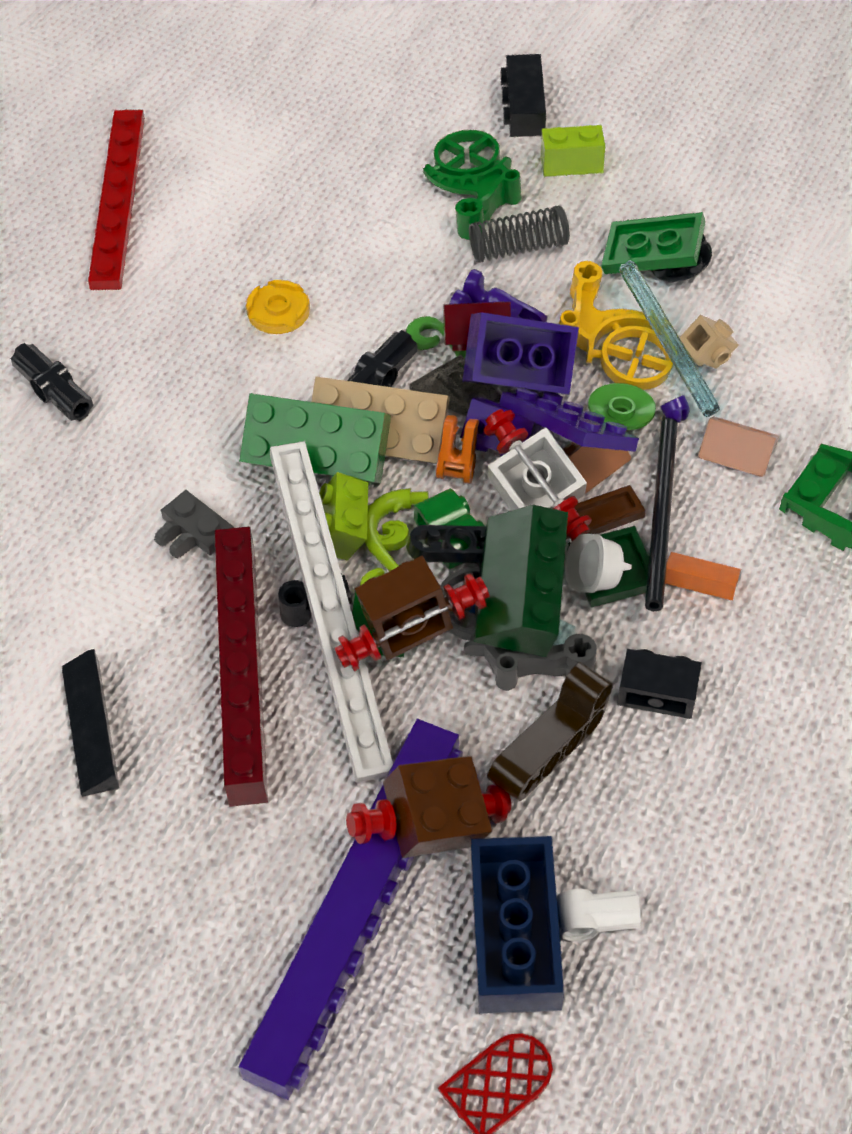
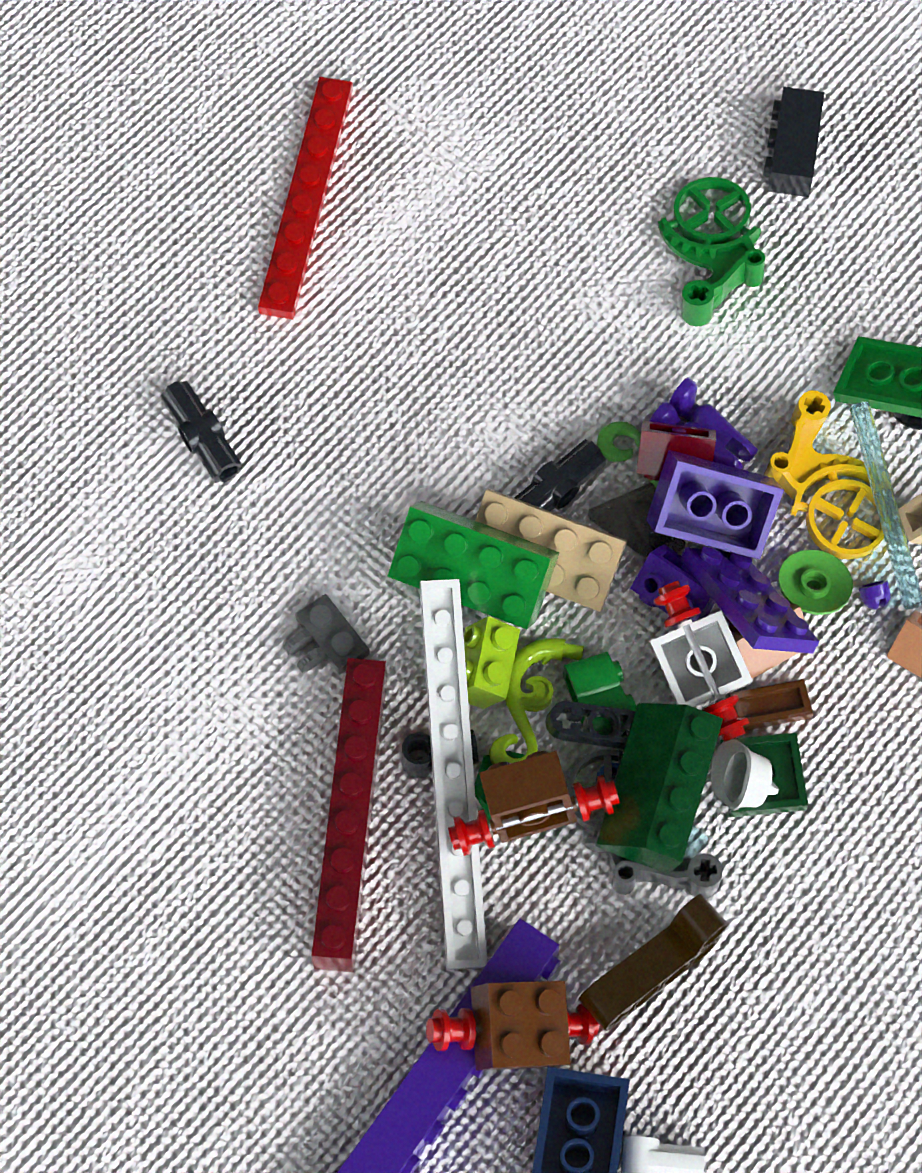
camera: 10 degrees right, 10 degrees up
(90, 725) = (186, 850): black slope -> none
(278, 307) = (462, 377): yellow tile -> none
(453, 461) = (617, 613): orange piece -> none
(478, 241) = (794, 335): dark grey piece -> none
(572, 150) = (834, 231): lime brick -> none
(659, 683) = (781, 921): black brick -> none
(661, 516) = (828, 724): black piece -> none
(702, 576) = (856, 802): orange slope -> none

